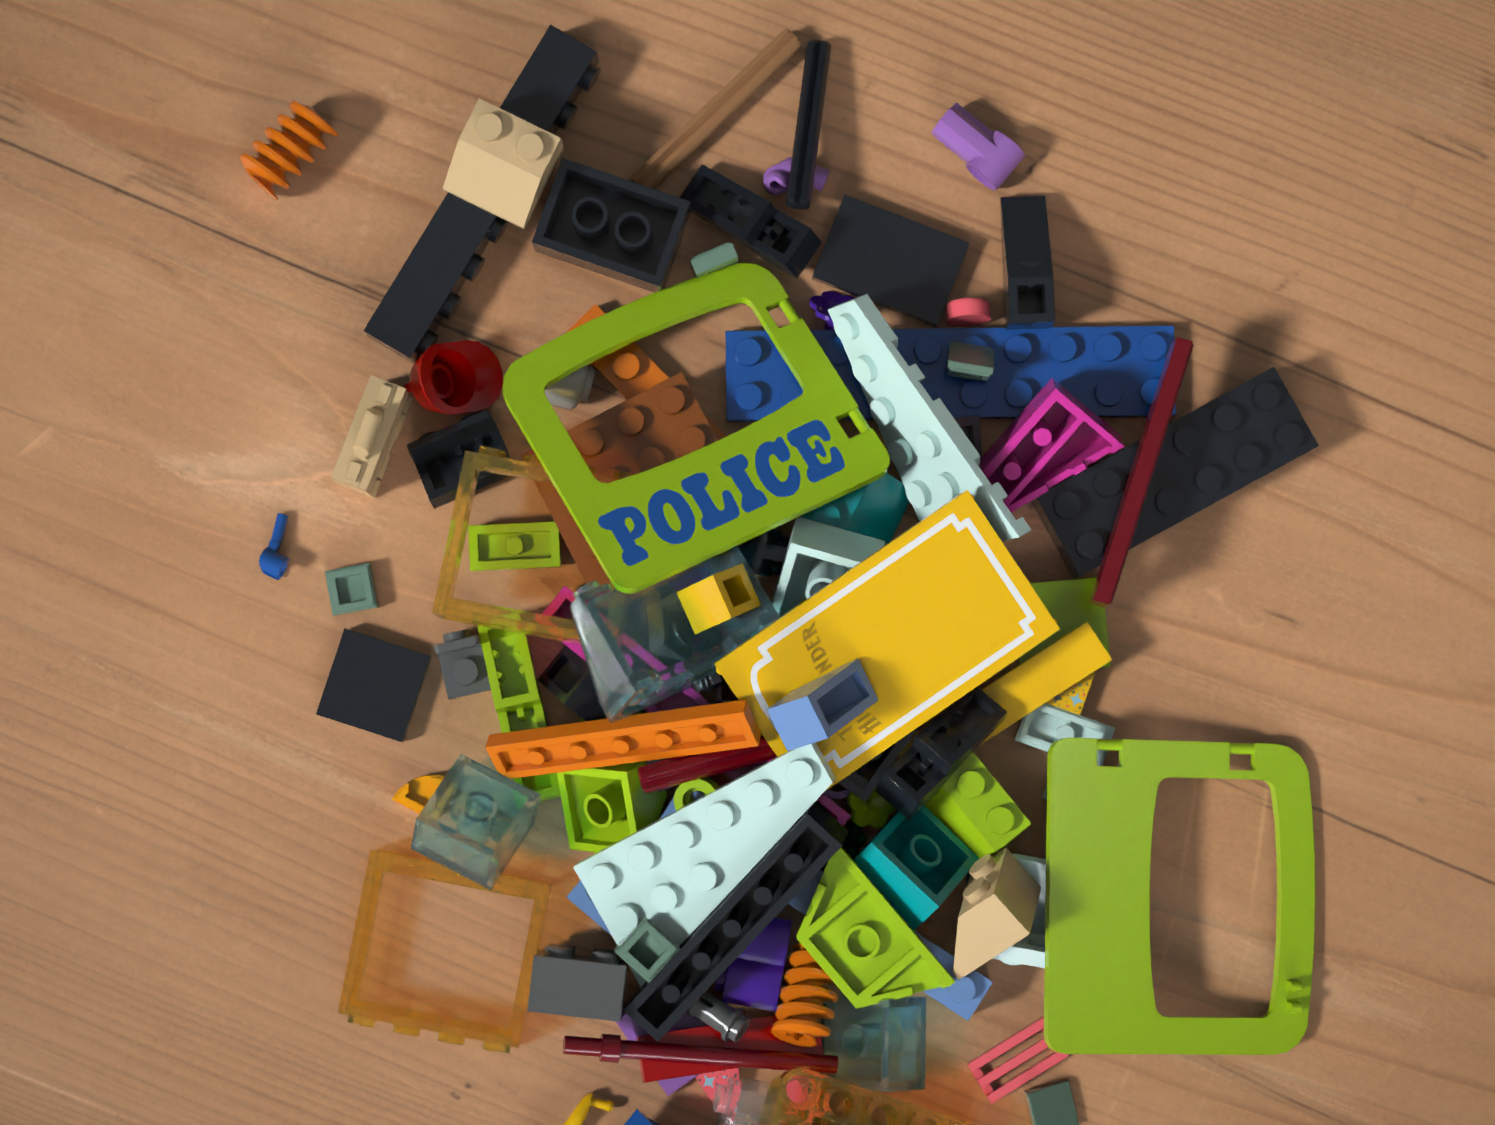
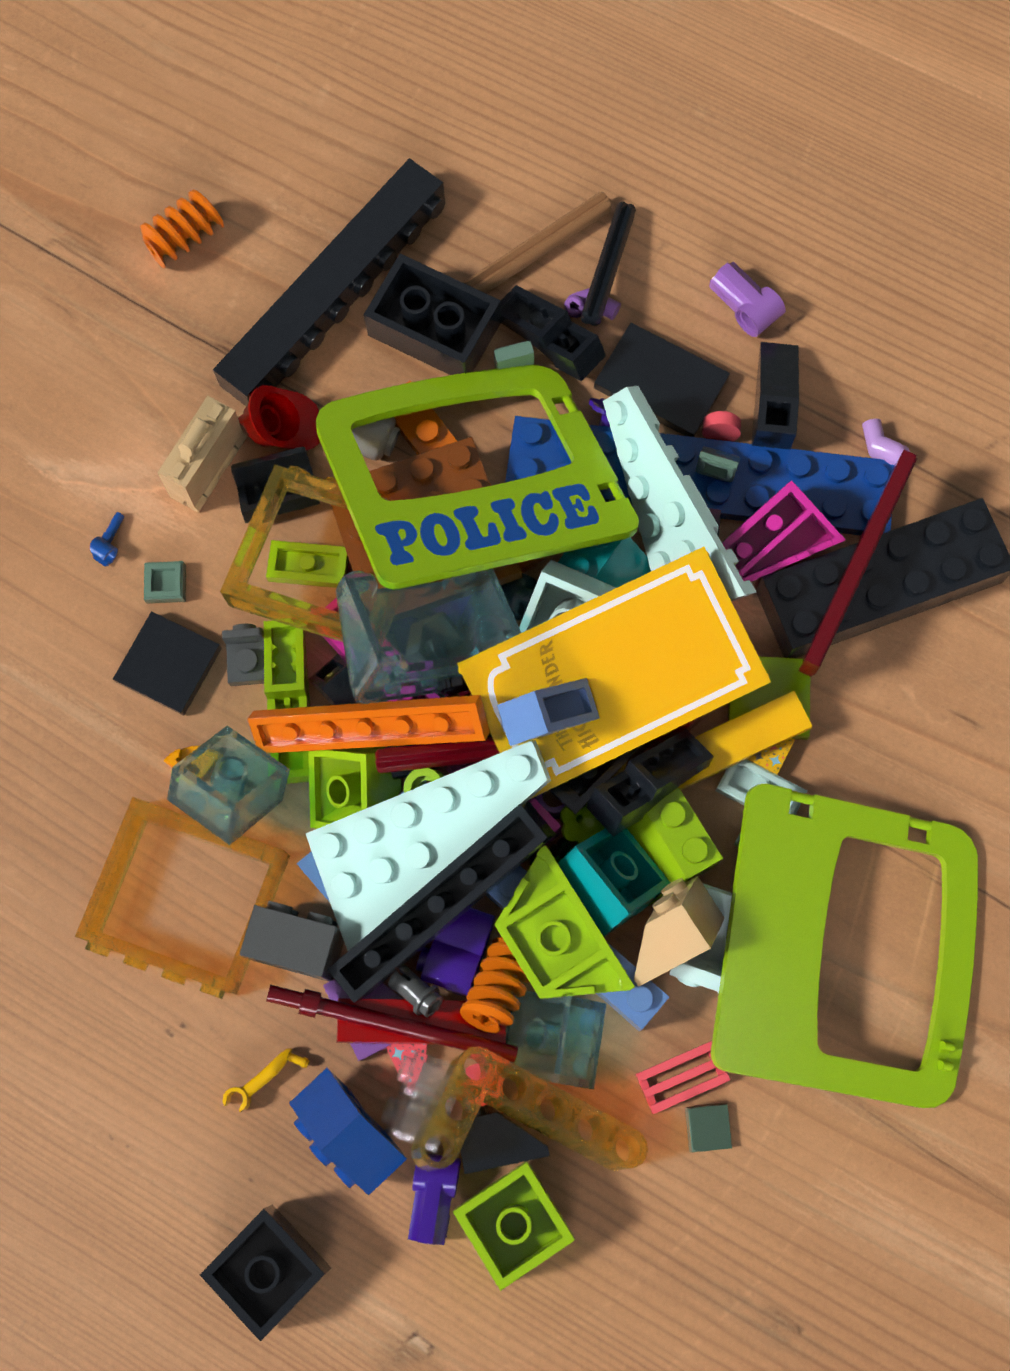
camera: 15 degrees right, 10 degrees down
(502, 163) = (350, 249): tan slope -> none
(646, 949) = (357, 914): sand green slope -> none
(718, 598) = (471, 613): yellow brick -> none
(1156, 310) = (880, 446): none -> lavender arm

